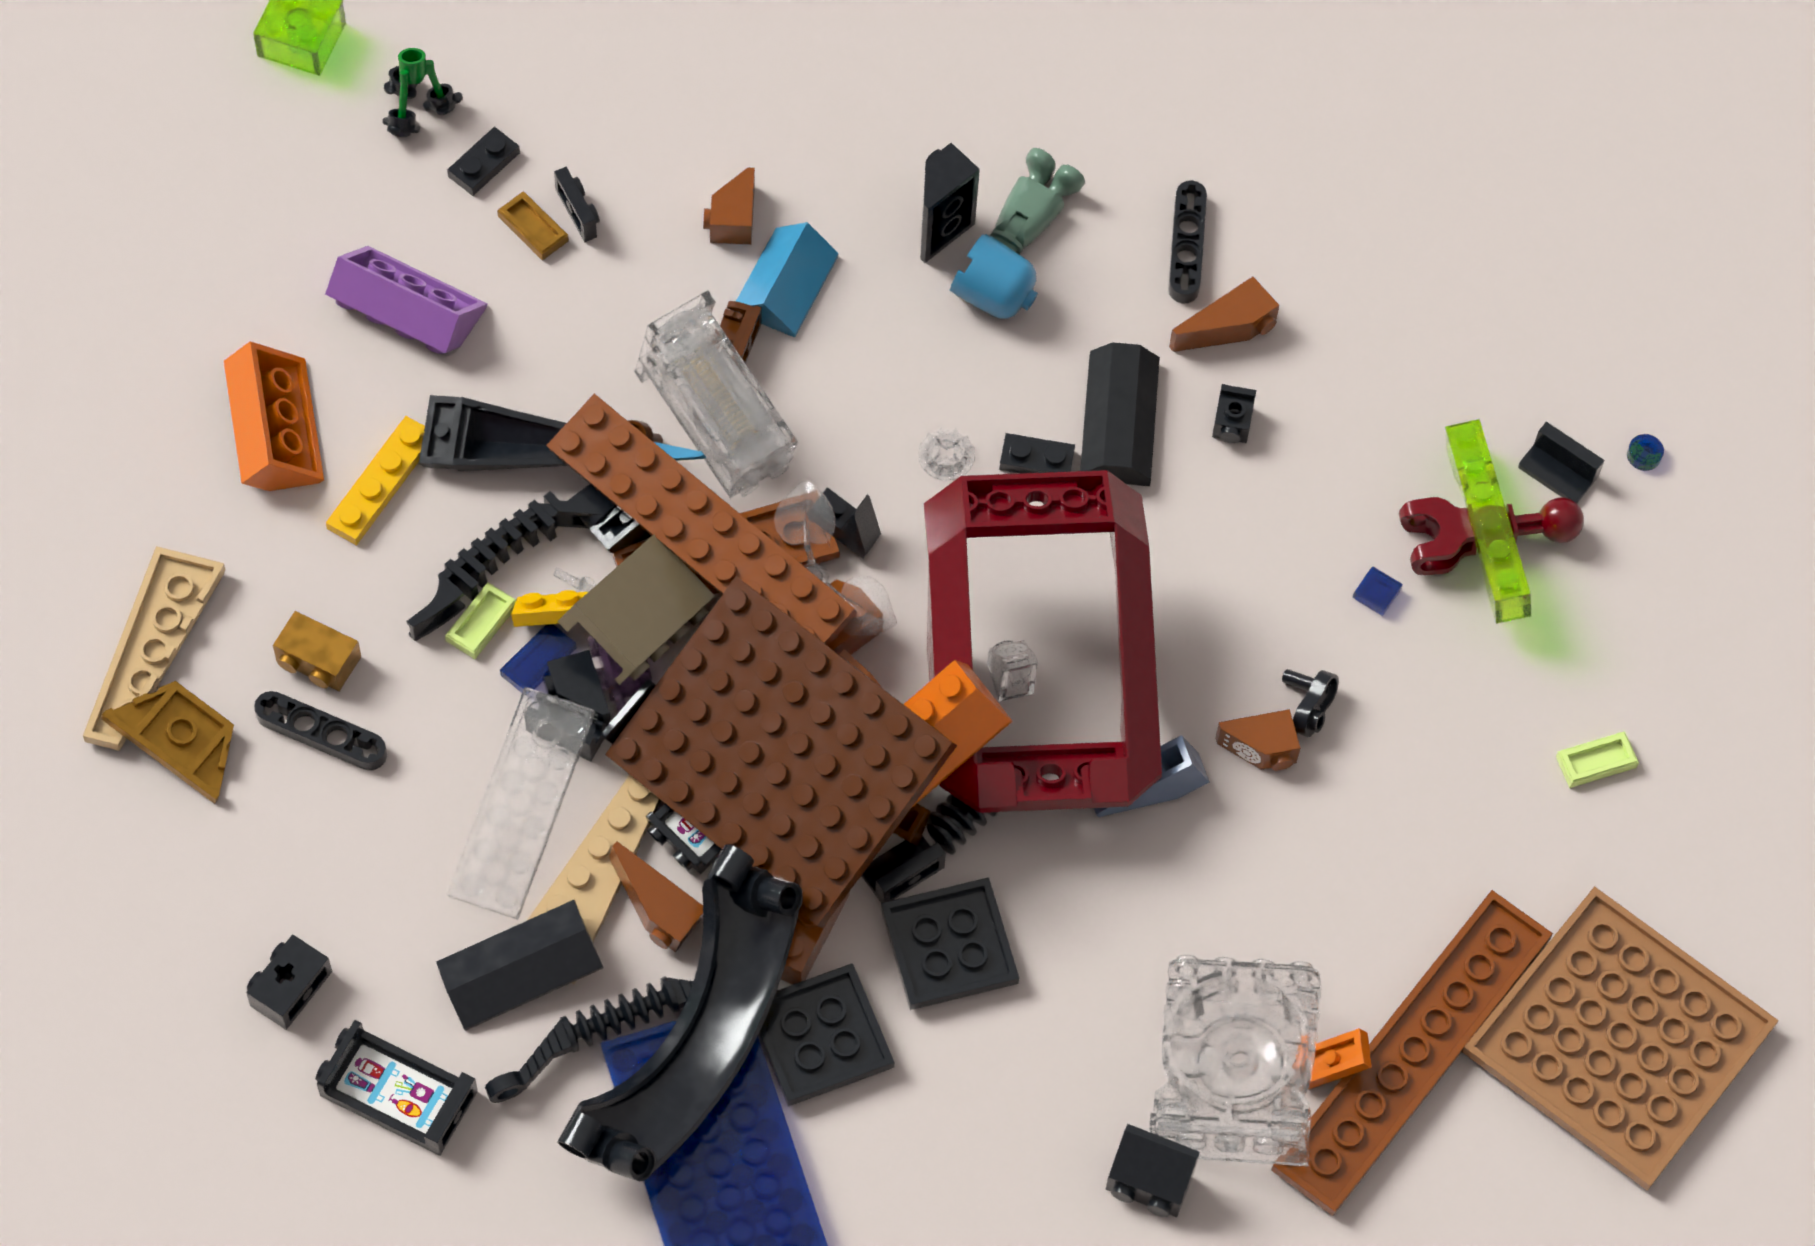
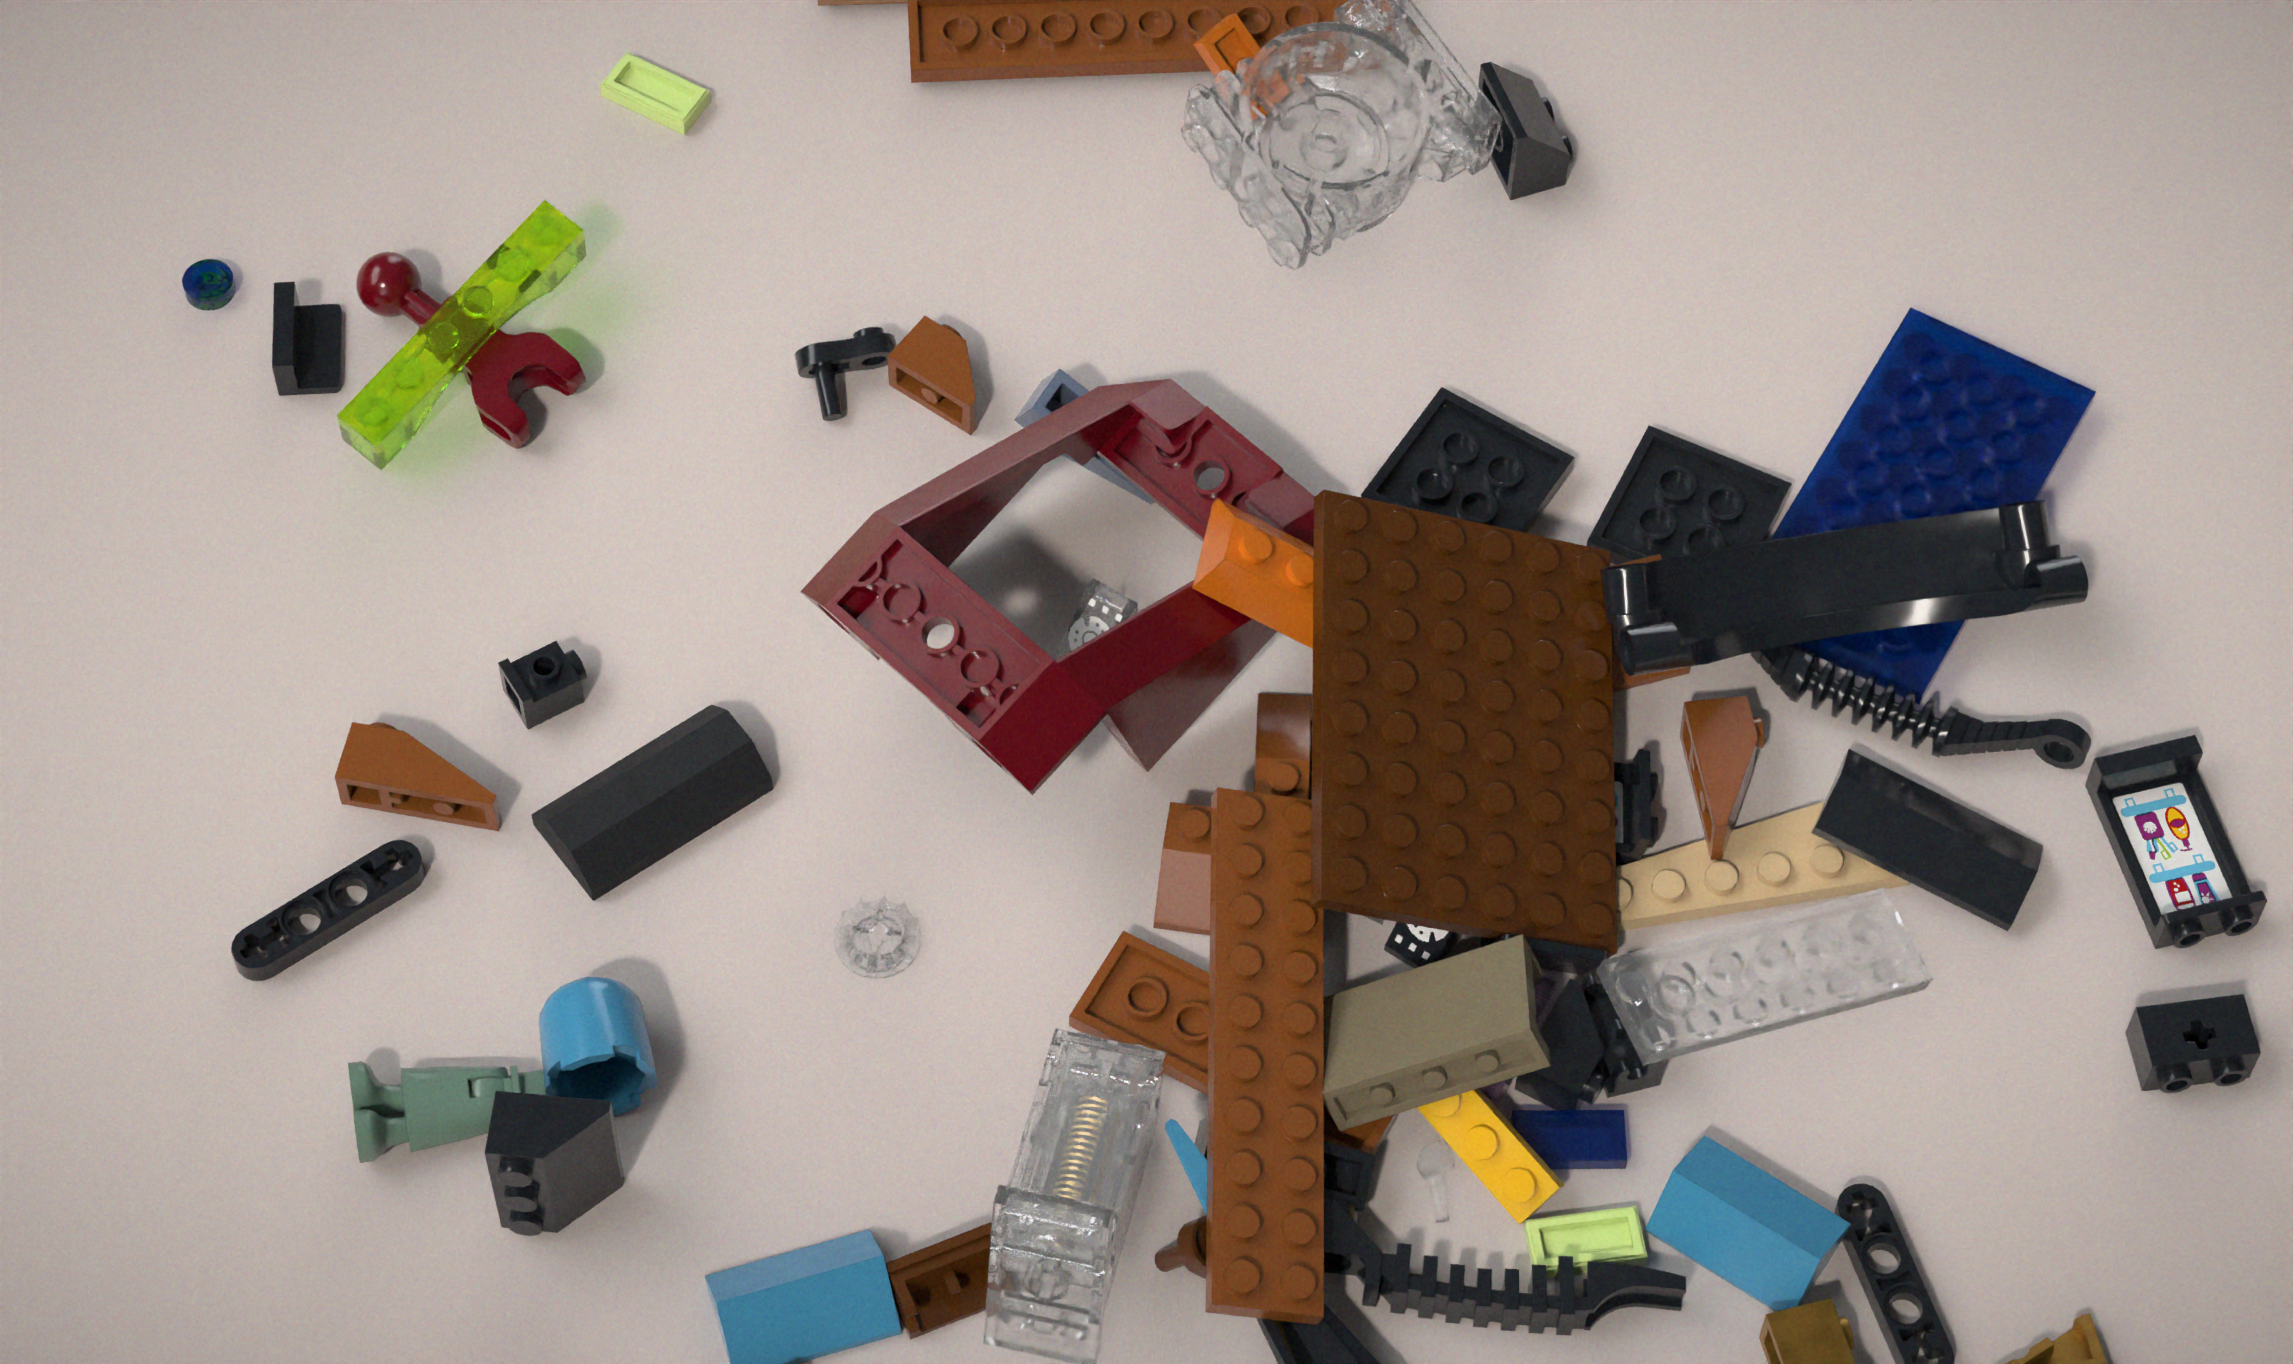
camera: 130 degrees left, 5 degrees down
(413, 691) = (1746, 1226): none -> dark azure slope
(809, 518) = (1150, 910): clear plant -> none
(854, 526) = (1081, 955): black slope -> none
(1035, 455) = (789, 845): black plate -> none
(1377, 590) = (639, 404): clear blue tile -> none

